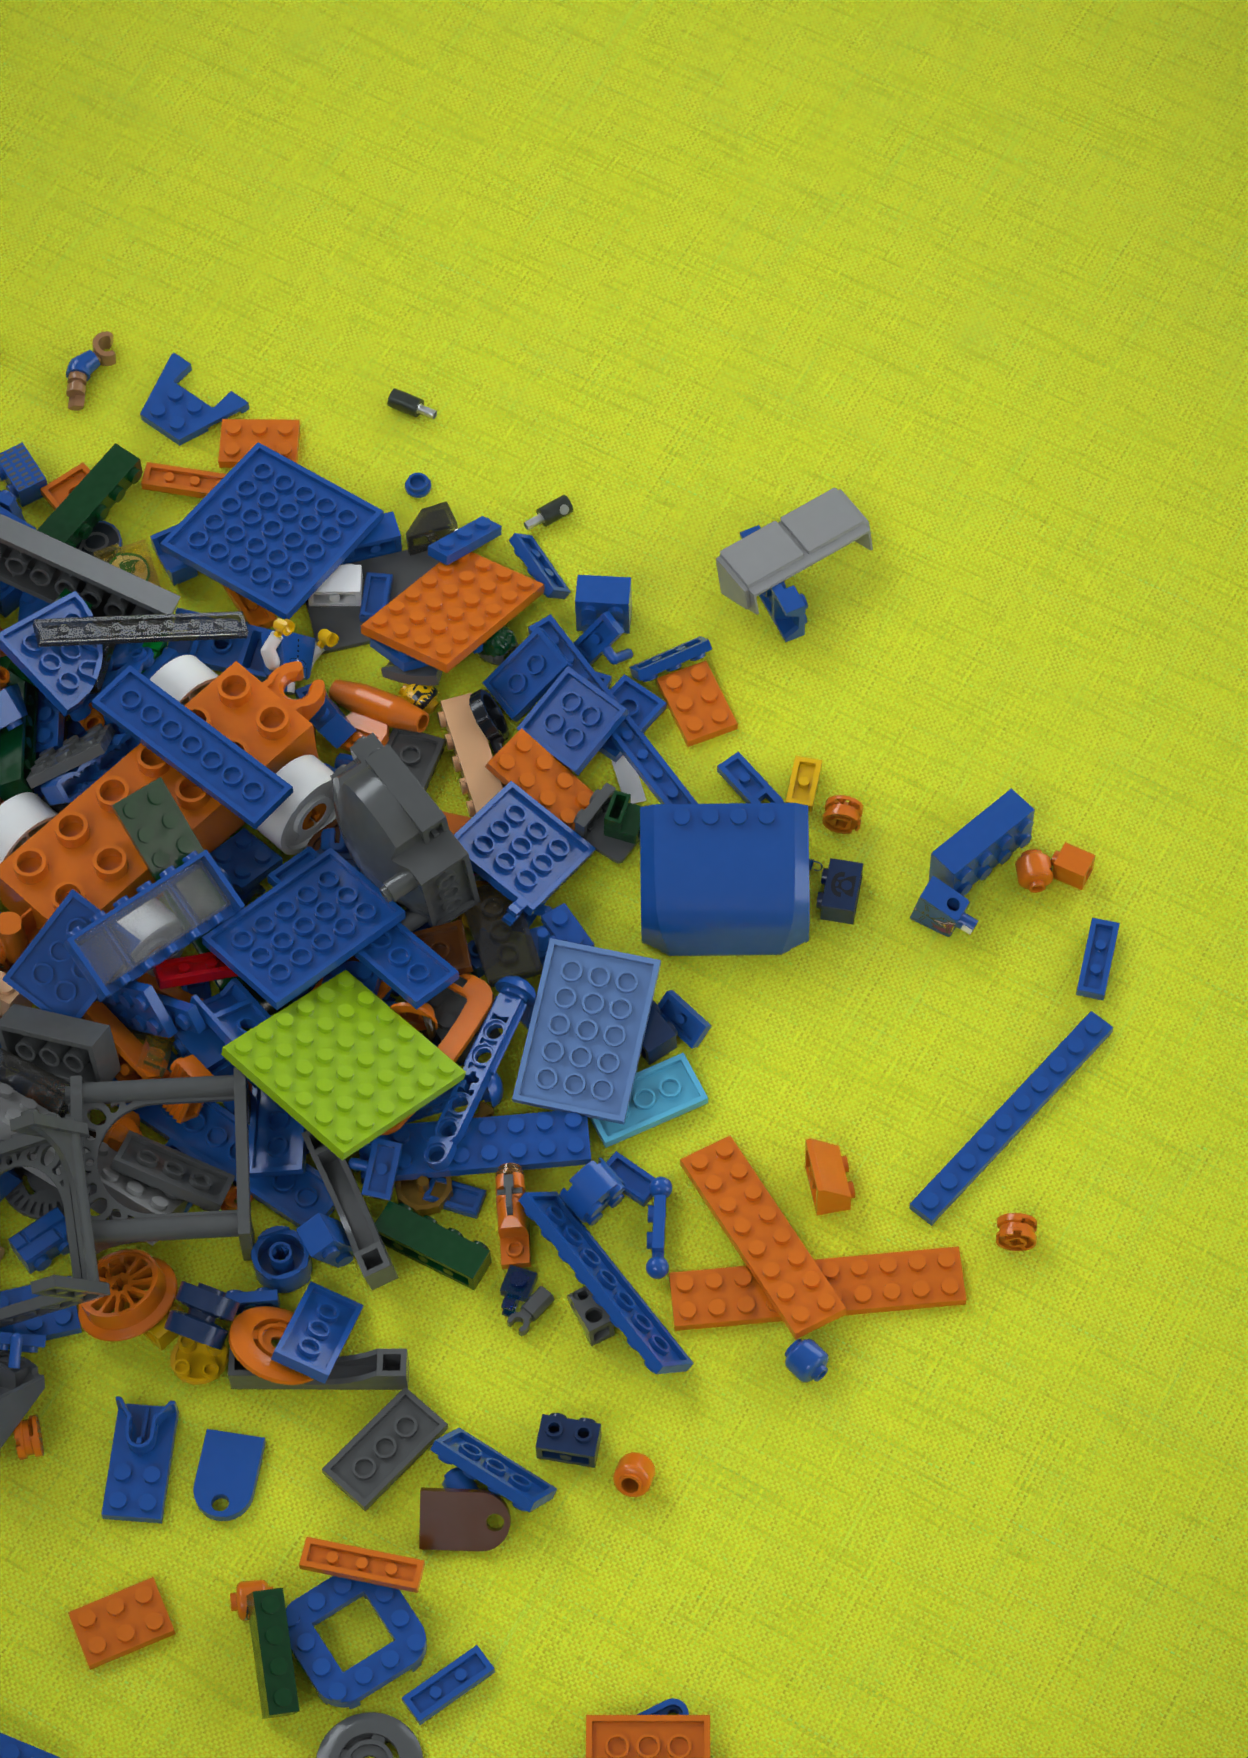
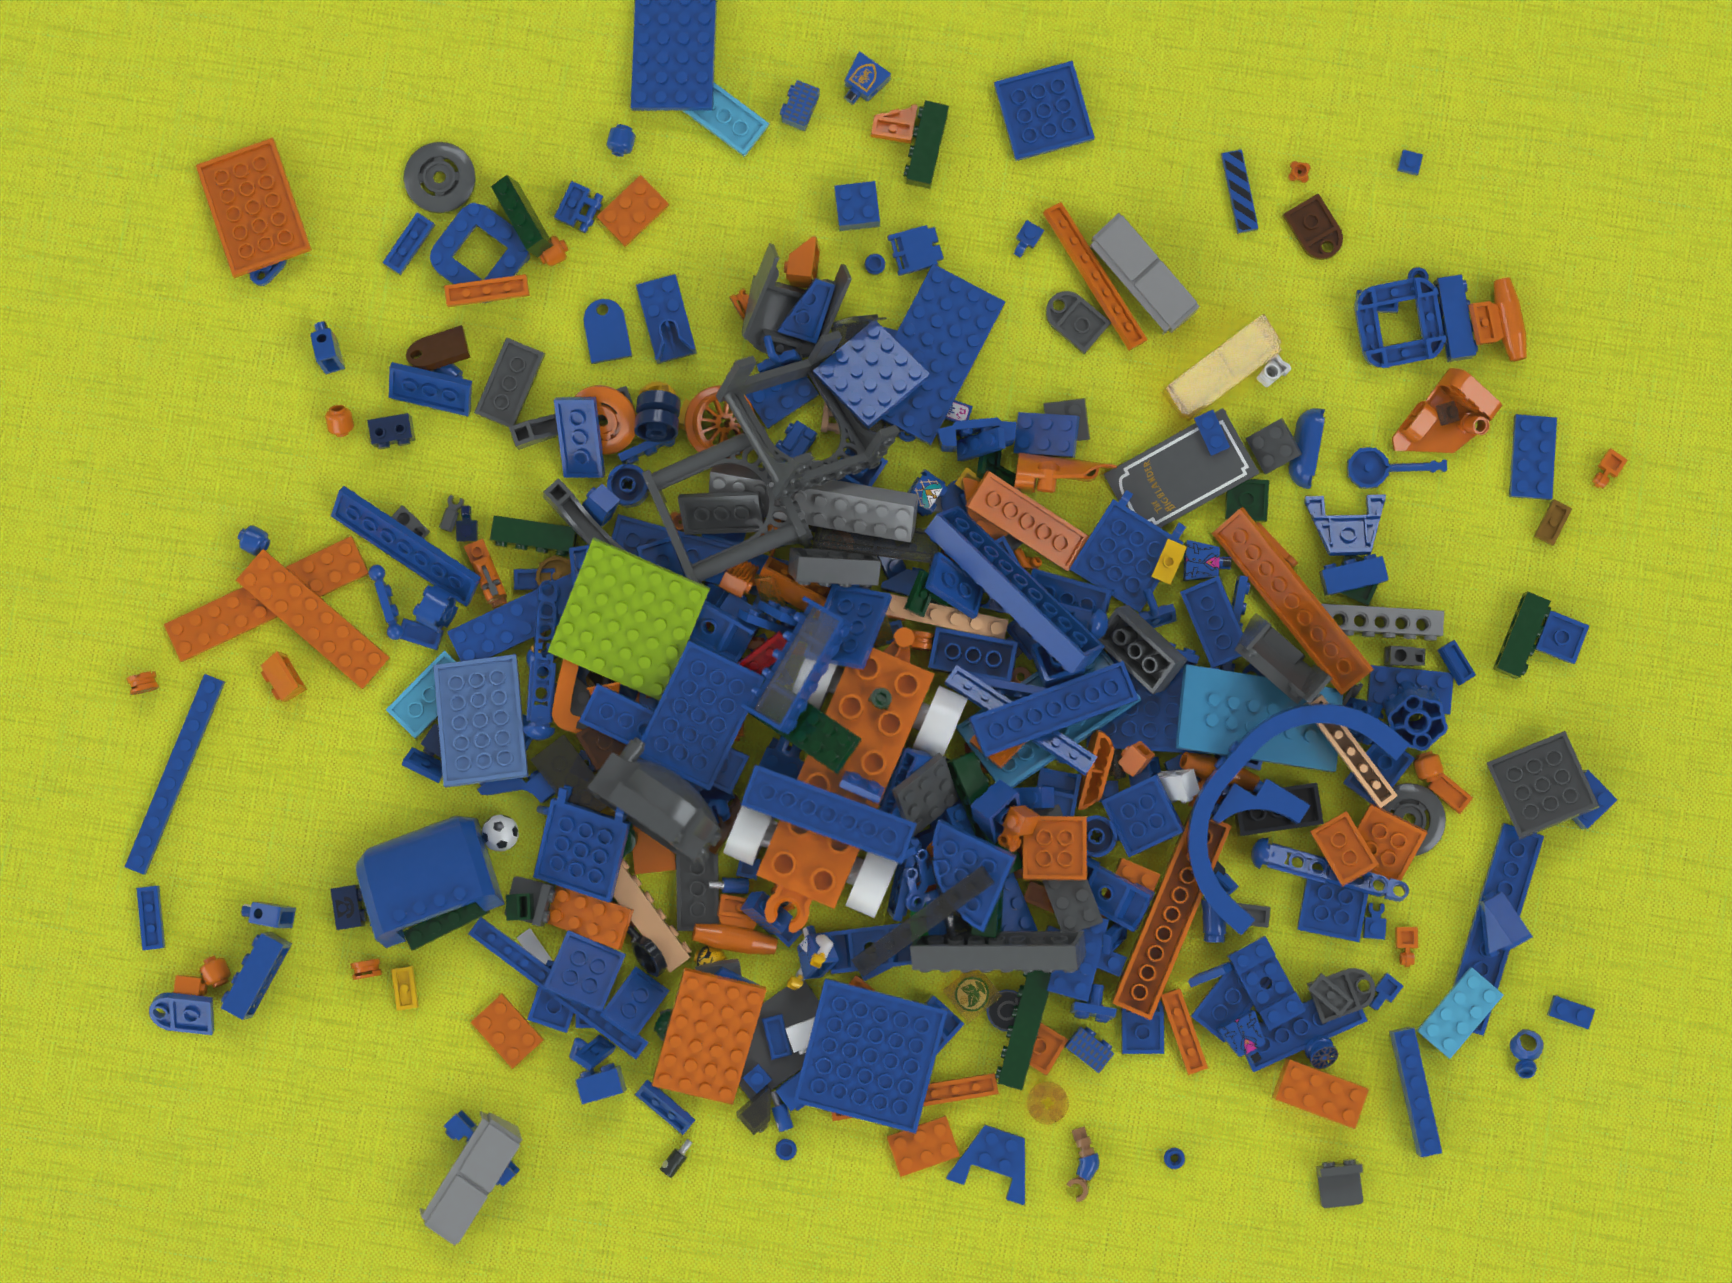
camera: 160 degrees right, 25 degrees up
(69, 855) = (880, 698): none -> dark green plate
(86, 430) = (1055, 1111): none -> clear yellow plate
(93, 1719) = (621, 140): none -> blue head
(136, 765) = (868, 789): none -> blue plate
(199, 1658) = (572, 204): none -> blue plate
(406, 515) = (781, 1113): none -> blue piece
(409, 404) = (821, 1221): pearl dark grey piece -> none
(417, 562) = (757, 1078): none -> blue plate
(464, 540) = (728, 1106): blue plate -> none
(561, 926) = (525, 795): blue plate -> none
(615, 1563) = (326, 349): none -> blue torso
(616, 907) = (500, 833): none -> white piece
(670, 659) = (538, 1060): blue plate -> none
(747, 780) = (442, 972): blue plate -> none
(1089, 837) = (183, 1013): none -> blue tile

